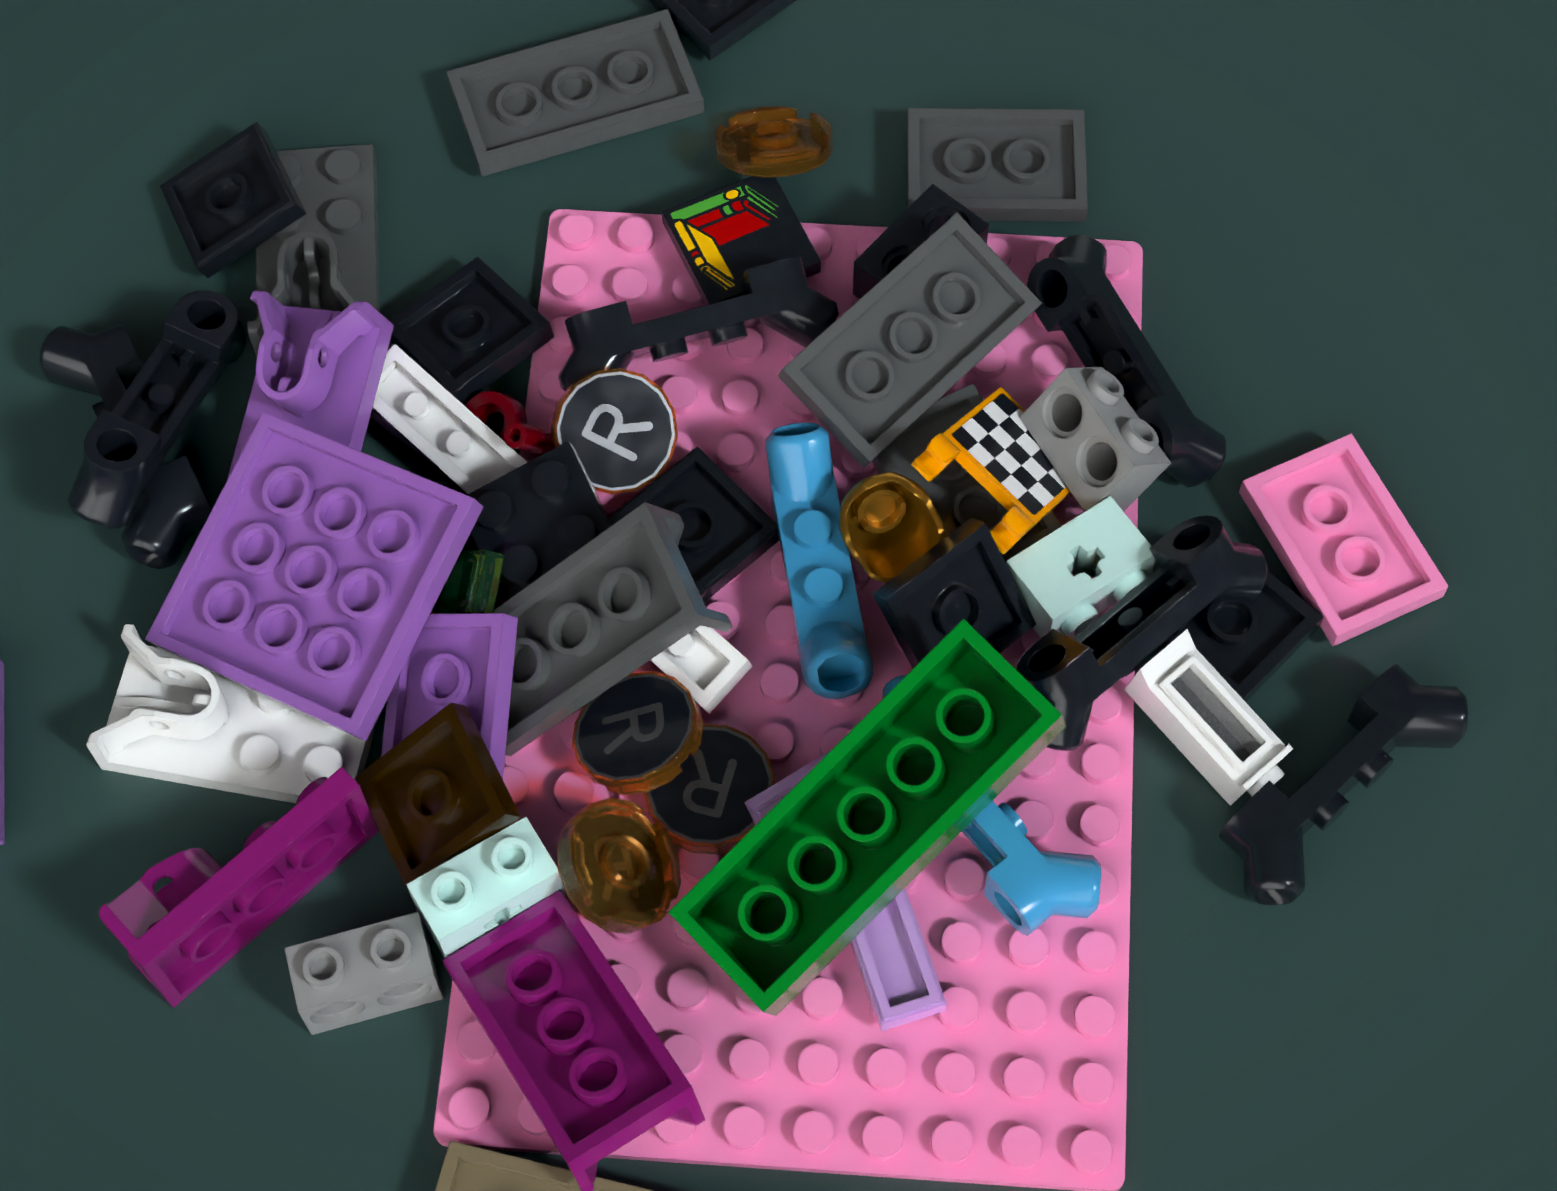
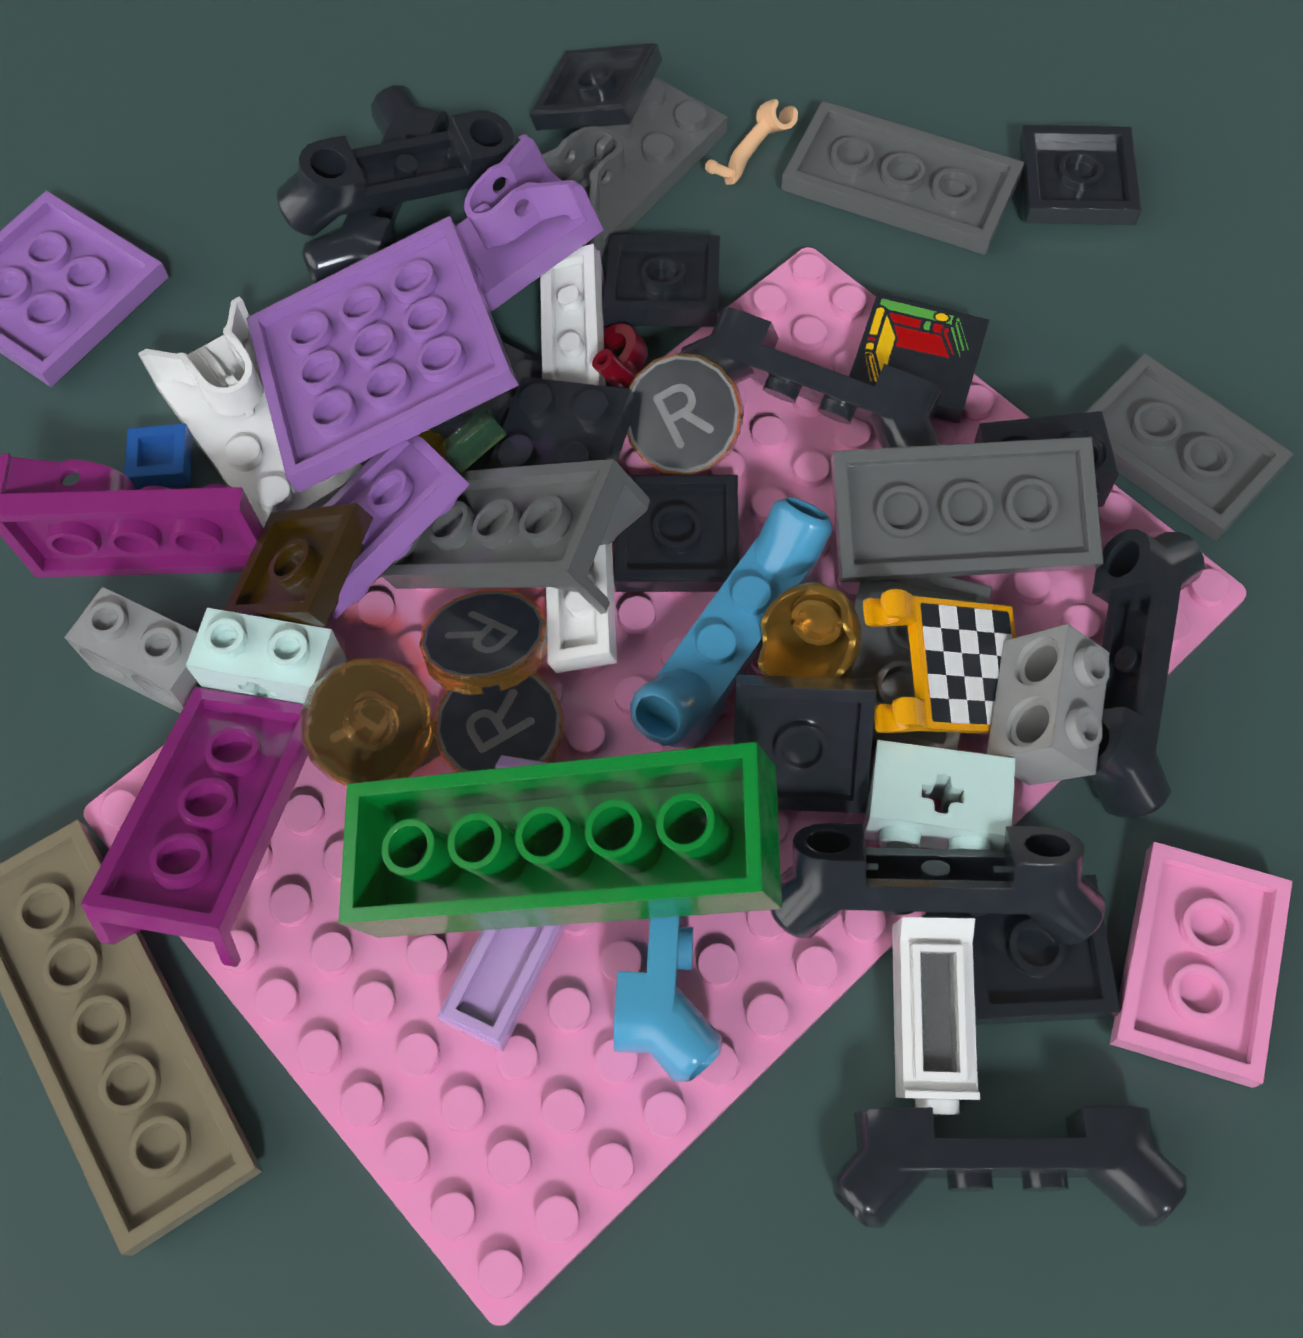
camera: 45 degrees right, 0 degrees up
(183, 816) = (159, 456): none -> blue plate
(410, 118) = (766, 123): none -> light nougat piece
(774, 142) = (1013, 305): clear orange tile -> none

